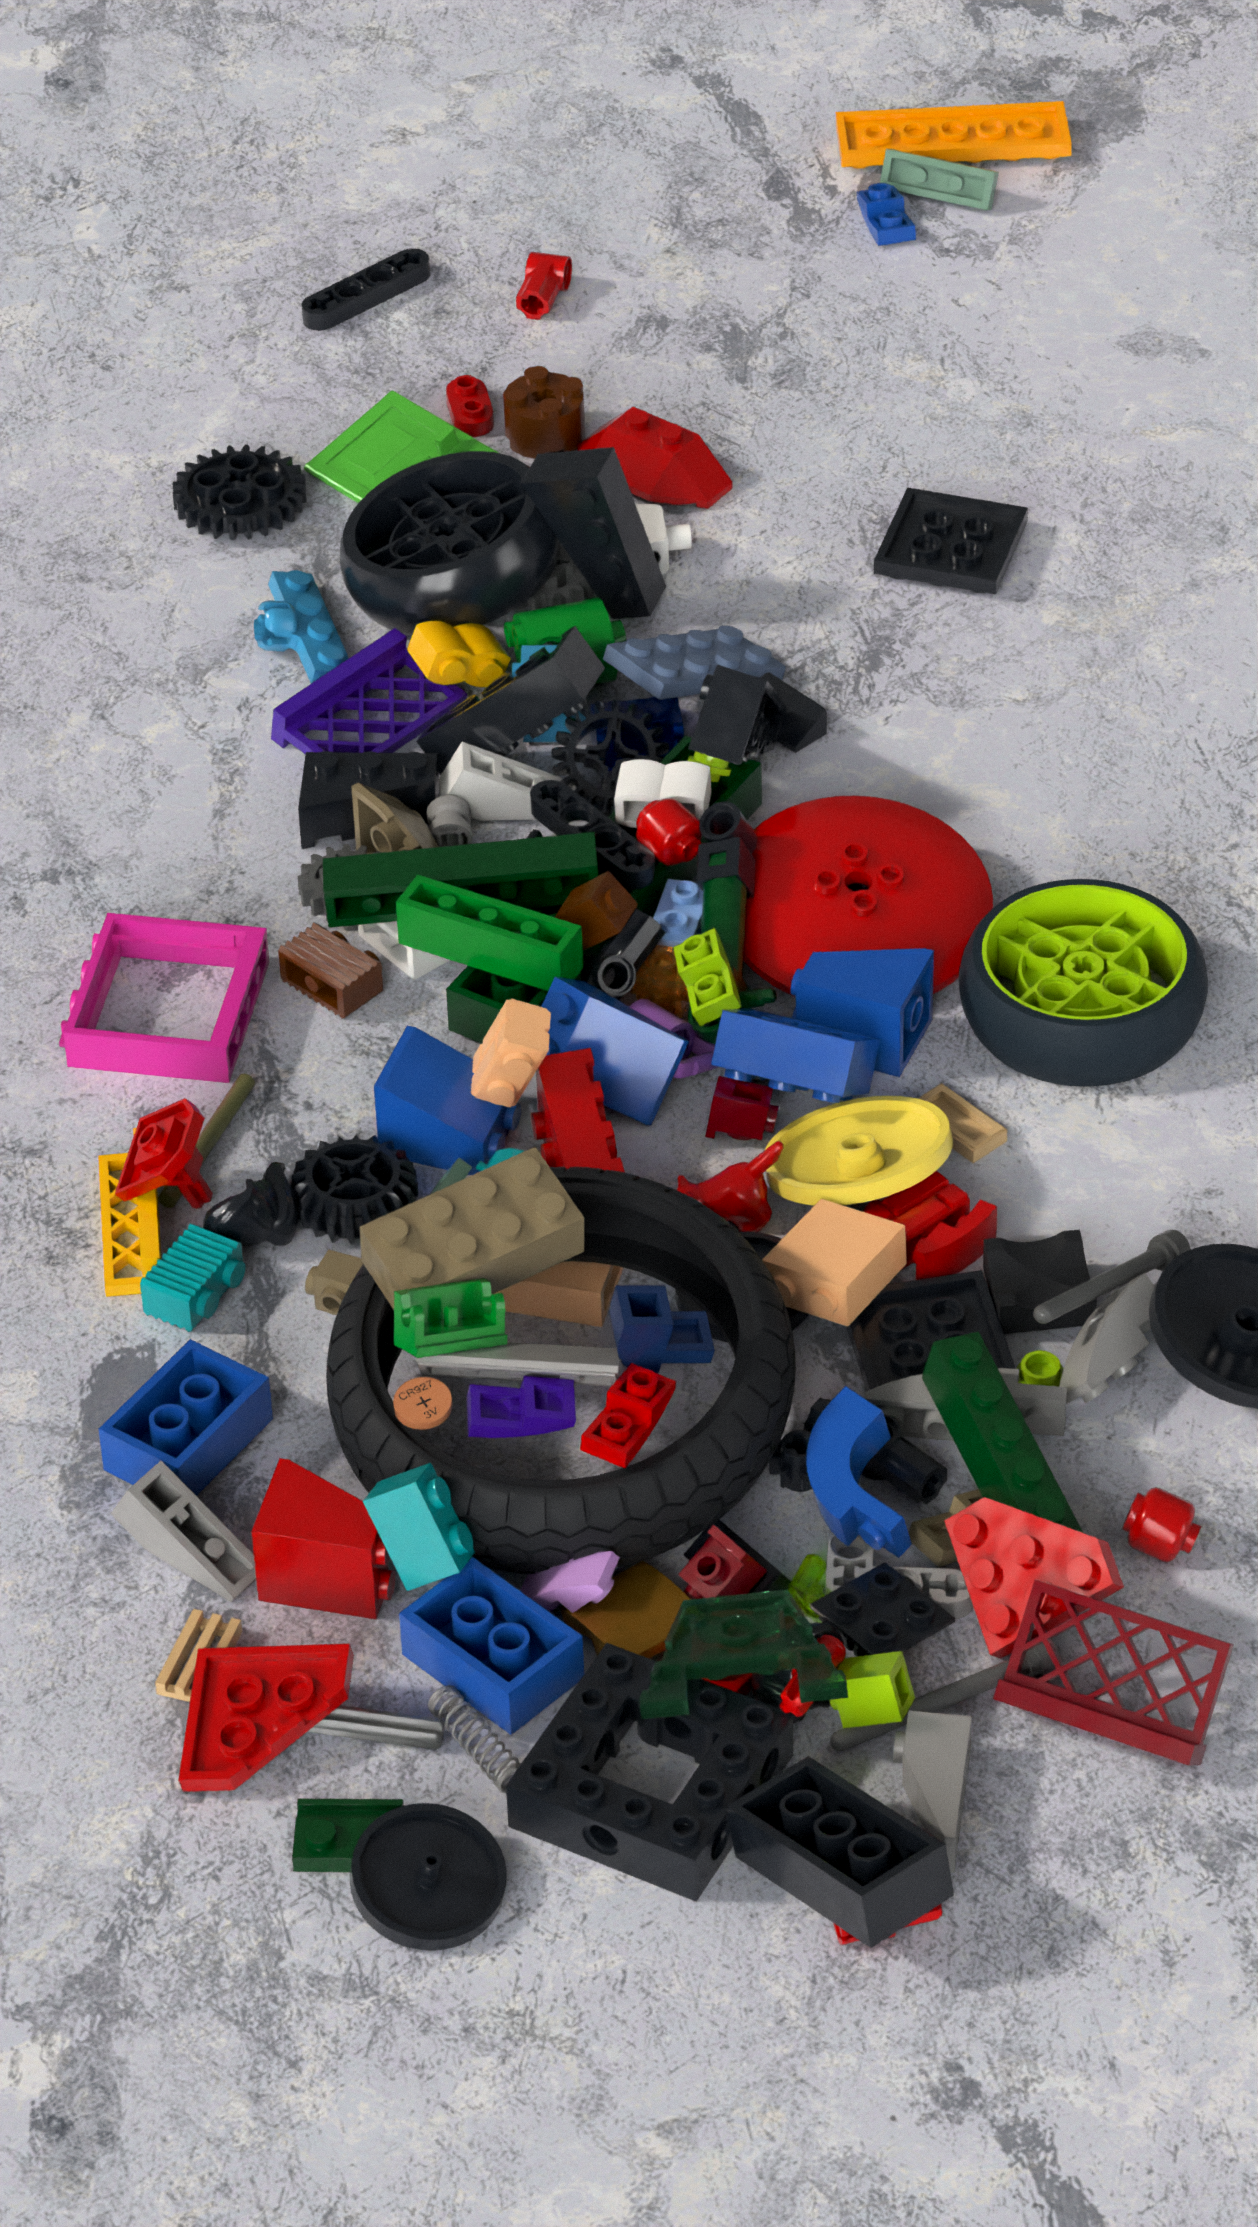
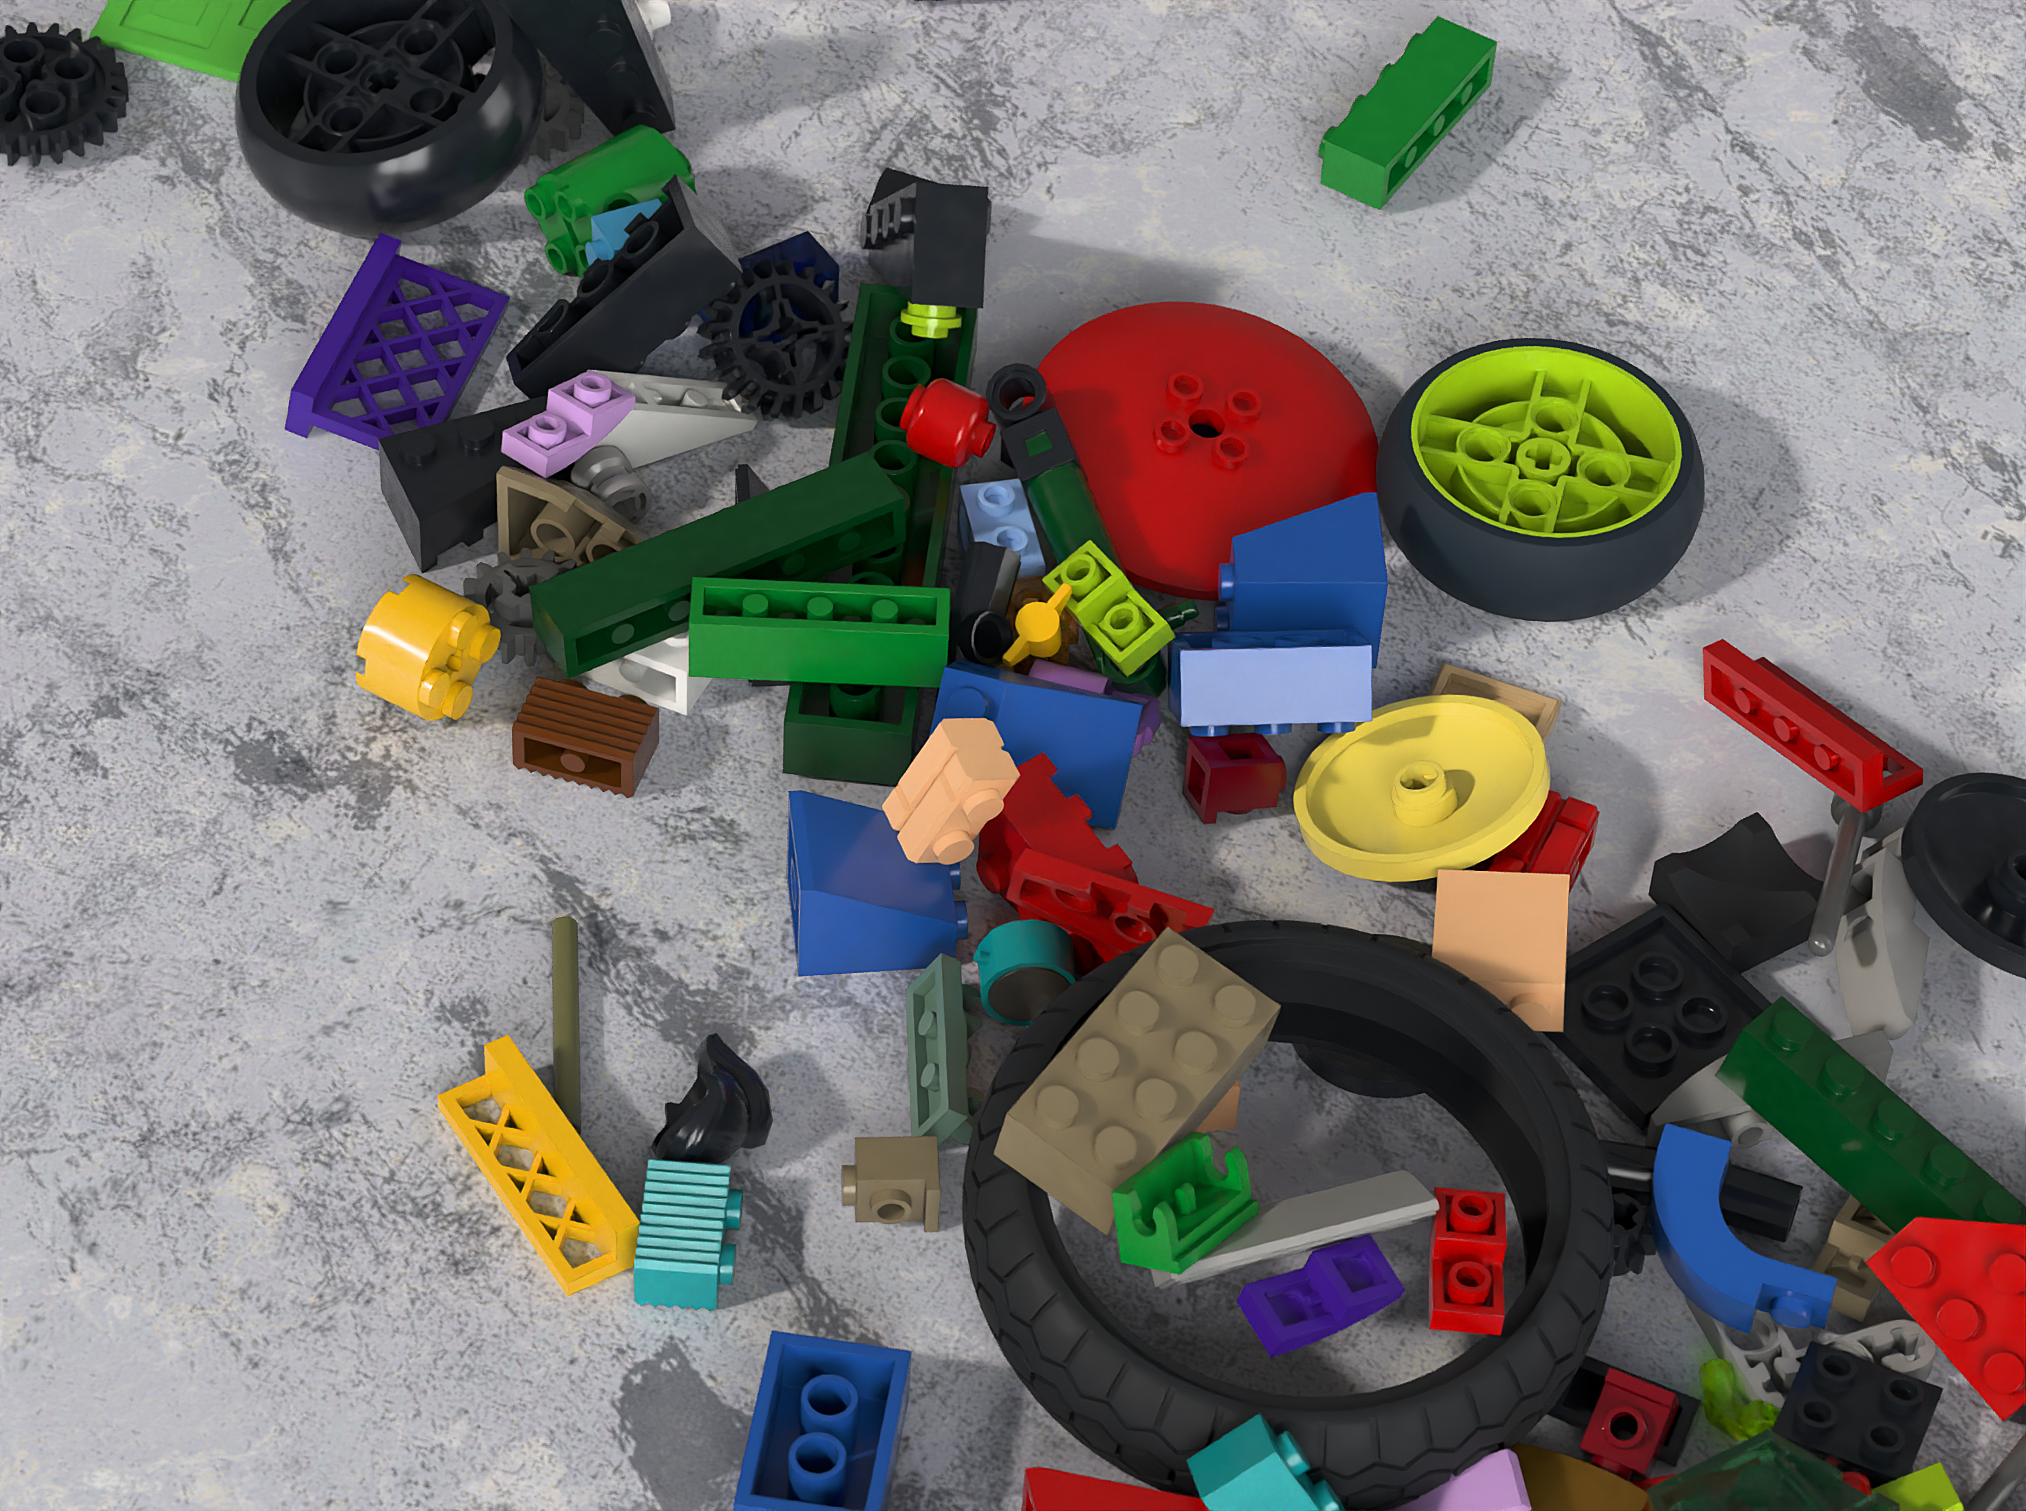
camera: 30 degrees left, 5 degrees up
(166, 1155) = (567, 1068): red piece -> none
(173, 941) = (376, 752): dark pink window -> none
(254, 884) = (426, 649): none -> yellow brick
(300, 623) = (237, 261): dark azure plate -> none
(353, 1180) = (817, 1035): black gear -> none
(422, 1403) = (1194, 1331): nougat piece -> none
(435, 768) = (575, 421): none -> lavender slope
(458, 653) = (477, 246): yellow brick -> none
(552, 1139) = (1098, 905): none -> red wing
(557, 805) = (774, 425): black beam -> none
(599, 907) = (934, 552): reddish brown brick -> none
(648, 780) = (883, 369): white brick -> none
(649, 976) = (1038, 628): none -> yellow piece
(653, 1334) = (1448, 1131): dark blue brick -> none
(679, 663) = (793, 179): sand blue plate -> none
(738, 1191) = (1304, 883): red animal -> none
(955, 1248) = (1605, 877): red slope -> none
(1040, 1369) = (1822, 1009): lime plate -> none
(1153, 1197) = (1806, 728): none -> red fence
(1165, 726) = (1407, 112): none -> green brick

